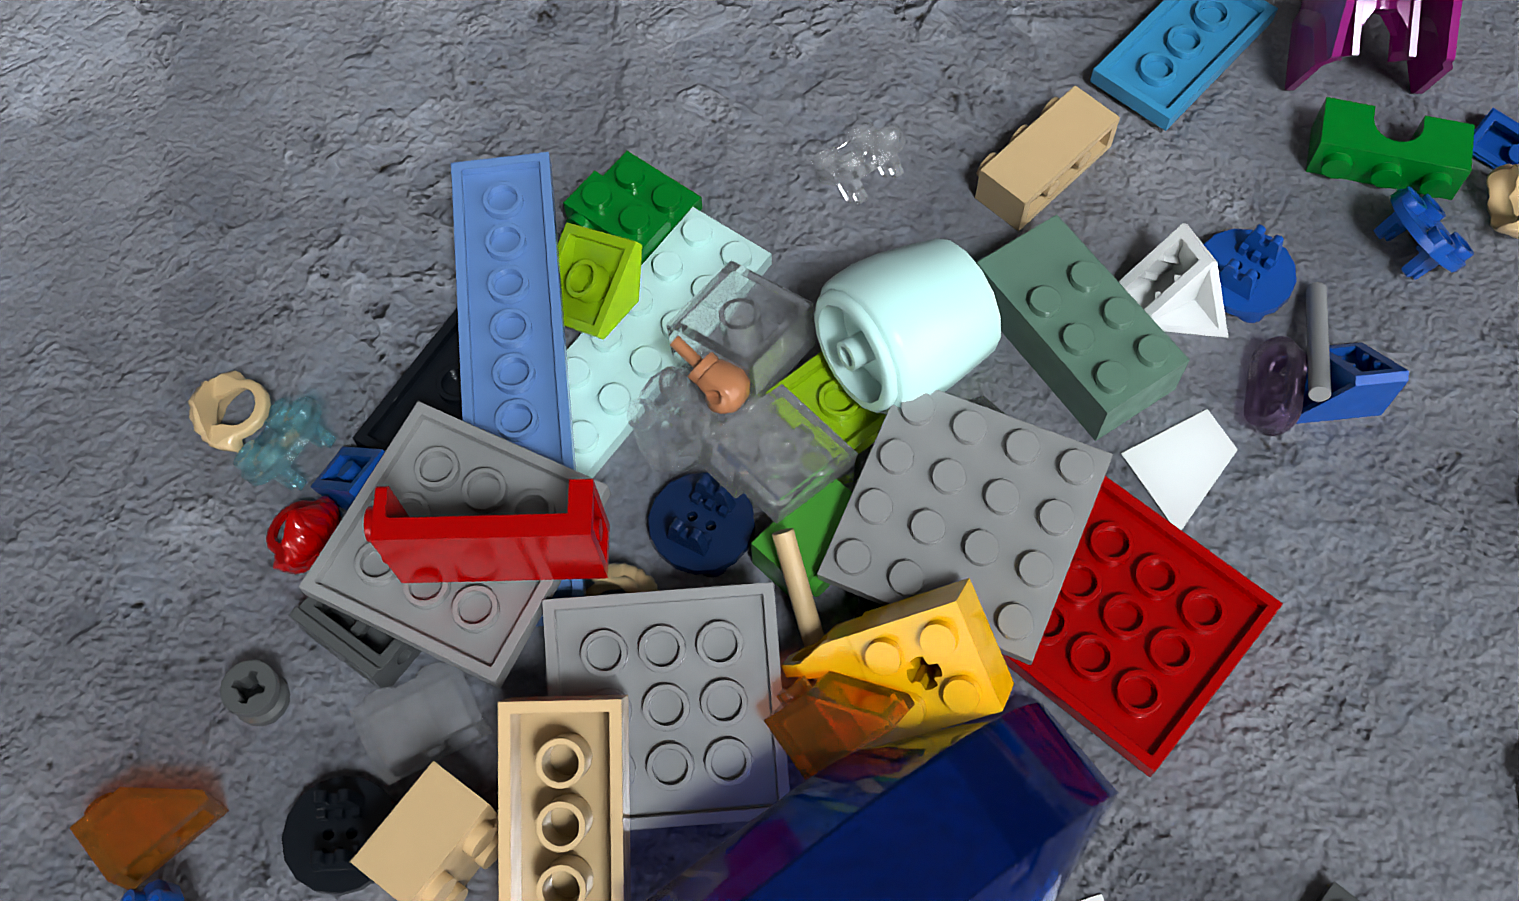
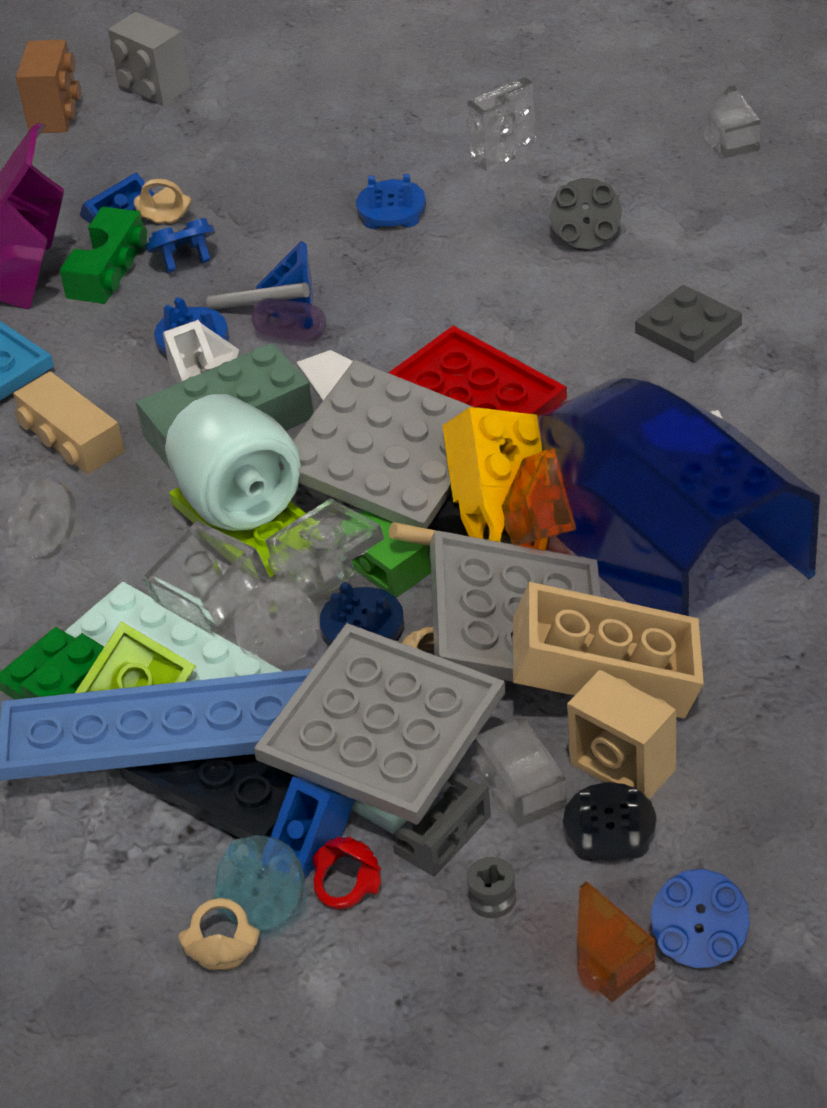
camera: 85 degrees left, 20 degrees down
(493, 545) = (396, 699): red panel -> none
(721, 381) = (259, 568): nougat piece -> none

